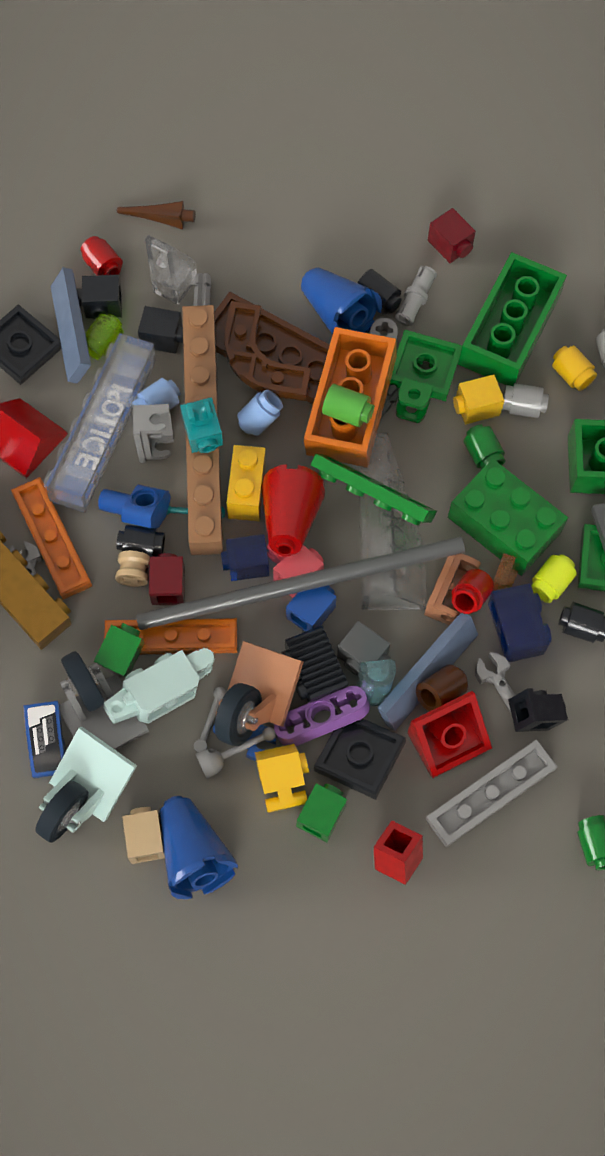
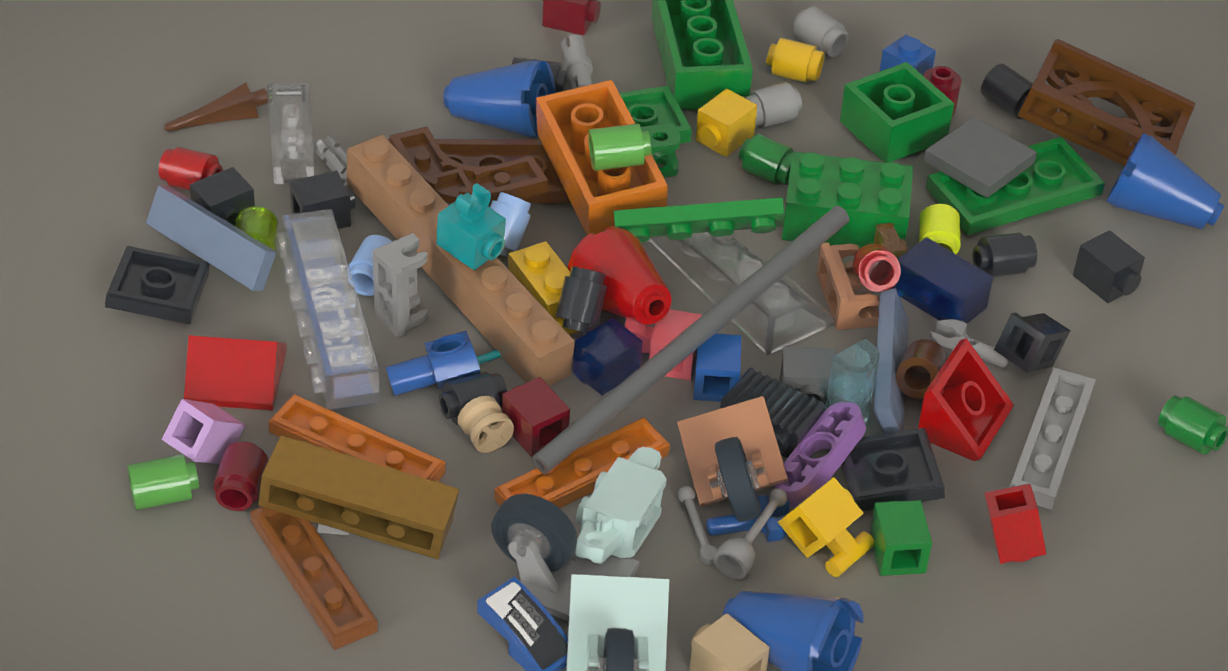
camera: 35 degrees left, 25 degrees down
(120, 649) = (550, 481): green brick -> none
(245, 513) = (581, 299): none -> black brick

